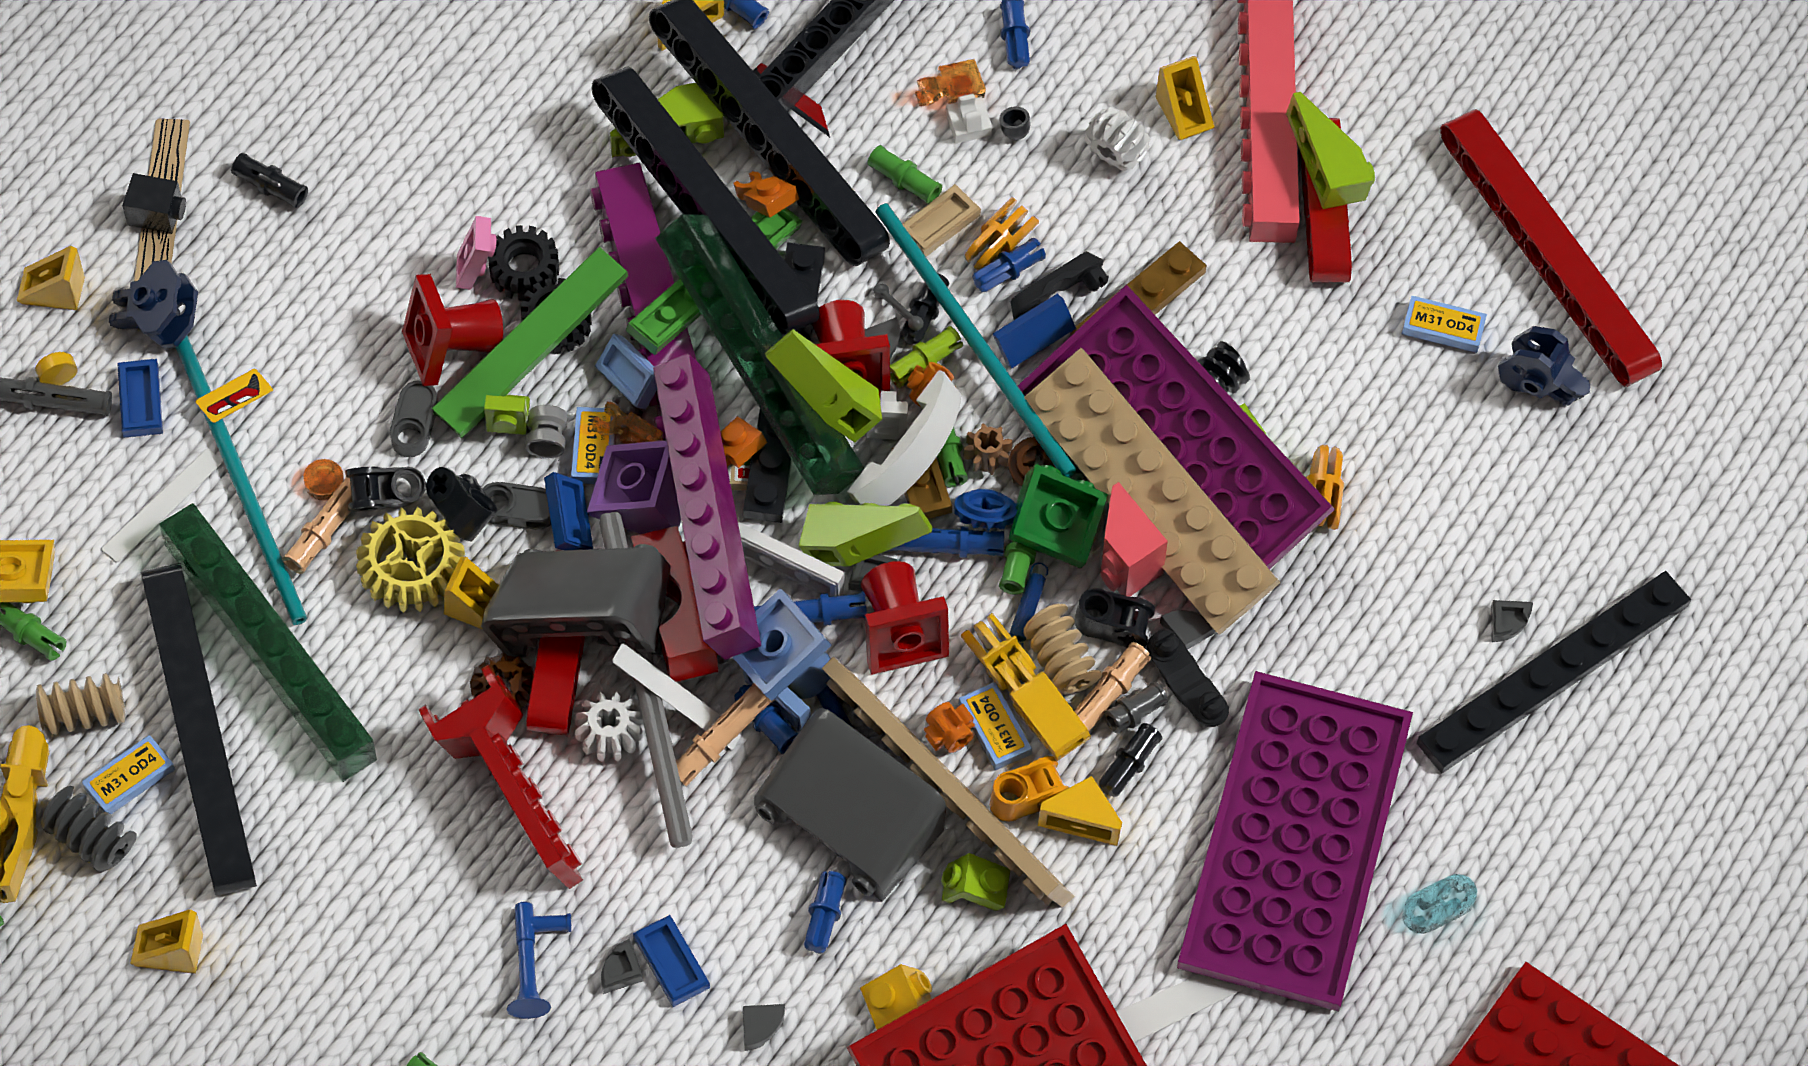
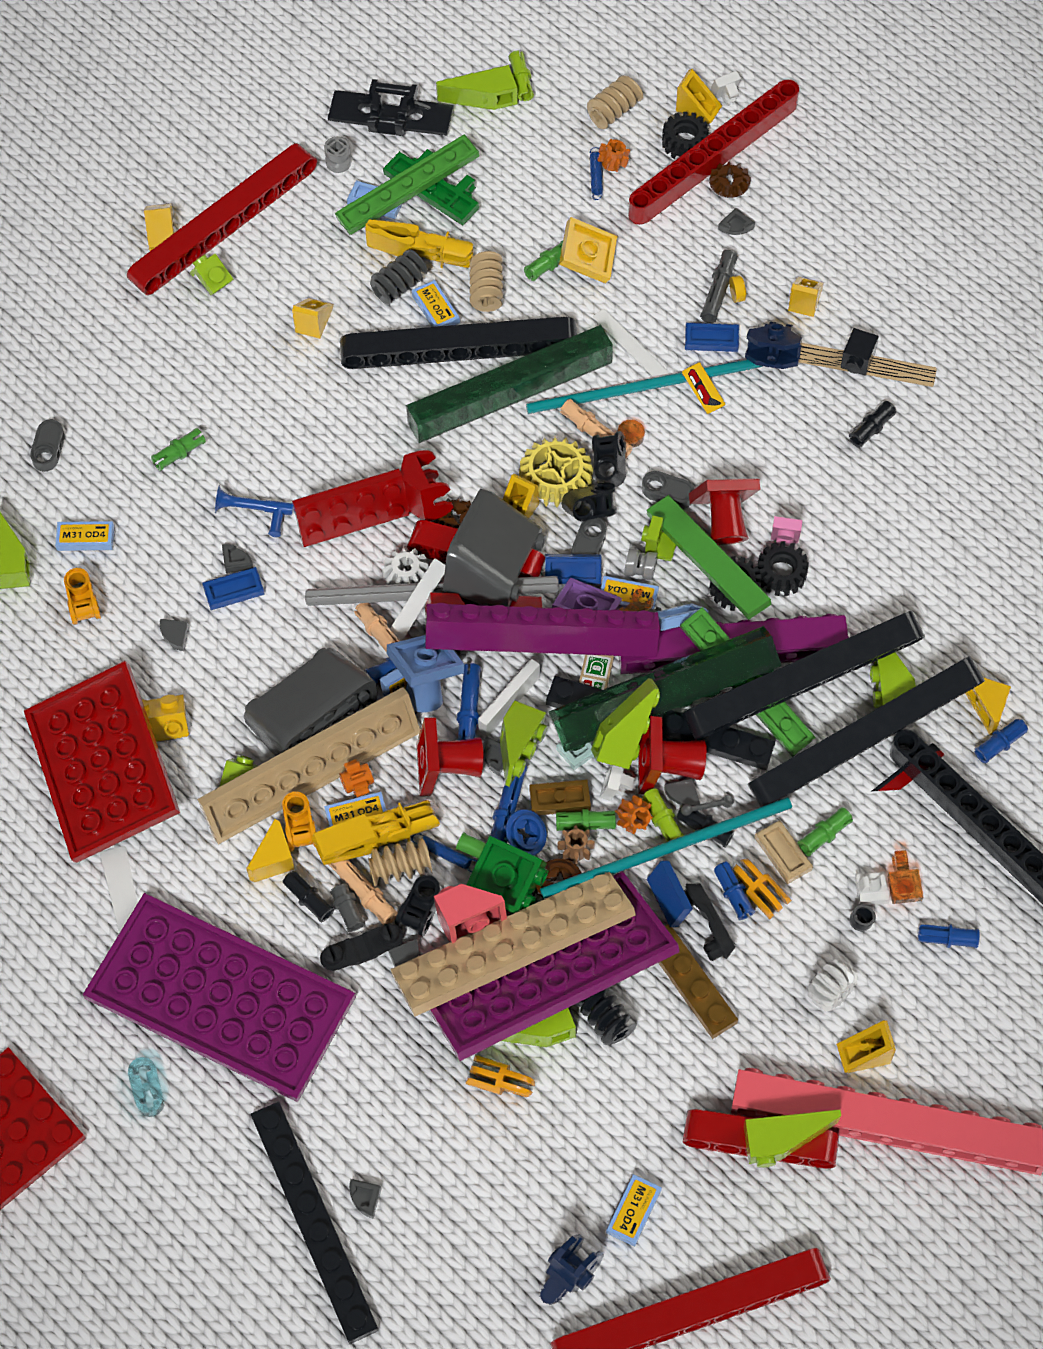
camera: 105 degrees right, 0 degrees up
(741, 441) = (602, 673): orange plate -> none
(766, 195) = (813, 729): orange plate -> none
(824, 911) = (240, 680): blue axle -> none
(915, 449) = (578, 790): white slope -> none

